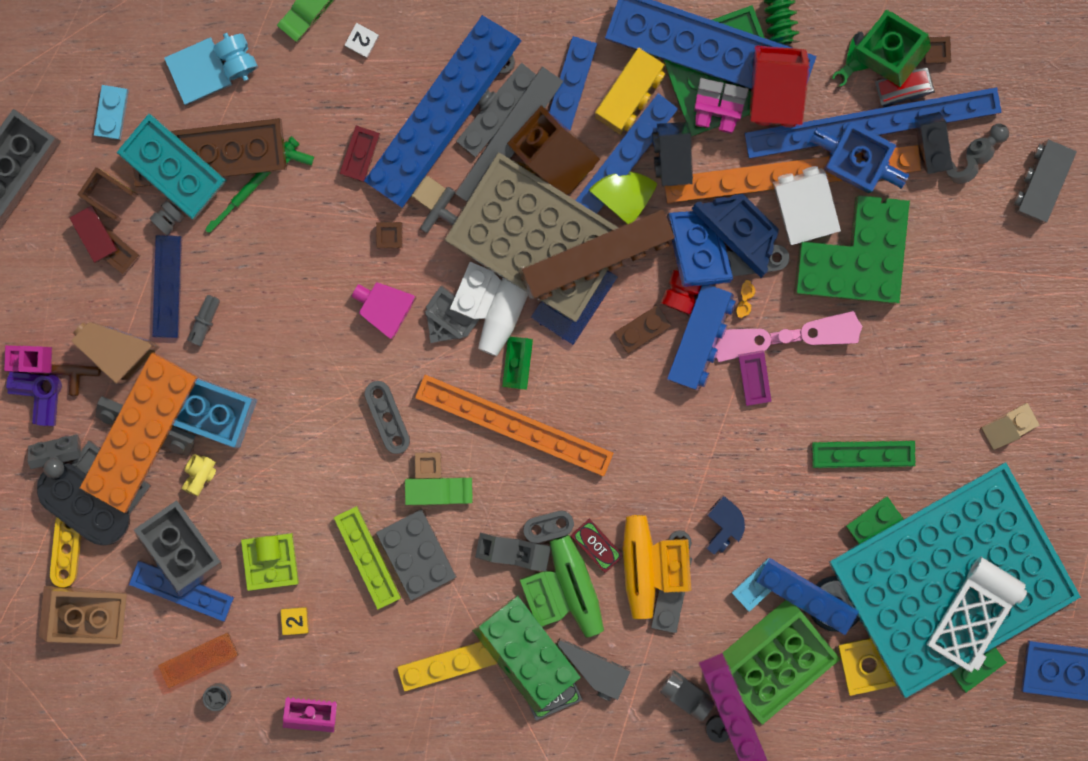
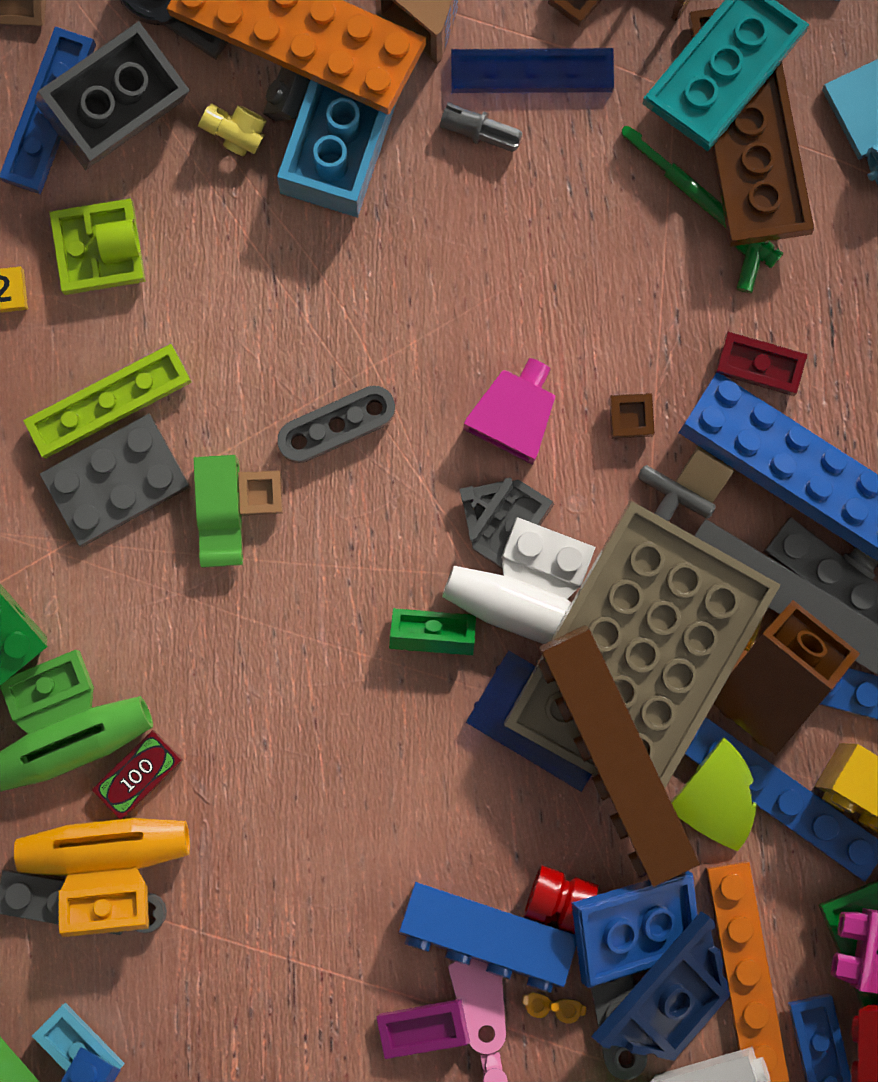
camera: 90 degrees right, 5 degrees down
(170, 213) = (648, 64): dark grey wheel -> none
(512, 551) = (123, 636): dark grey brick -> none
(514, 425) = (329, 632): orange plate -> none
(548, 525) = (164, 694): dark grey plate -> none
(642, 329) = (496, 836): reddish brown plate -> none
(674, 152) = (792, 879): black brick -> none
(731, 522) = (178, 998): dark blue brick -> none

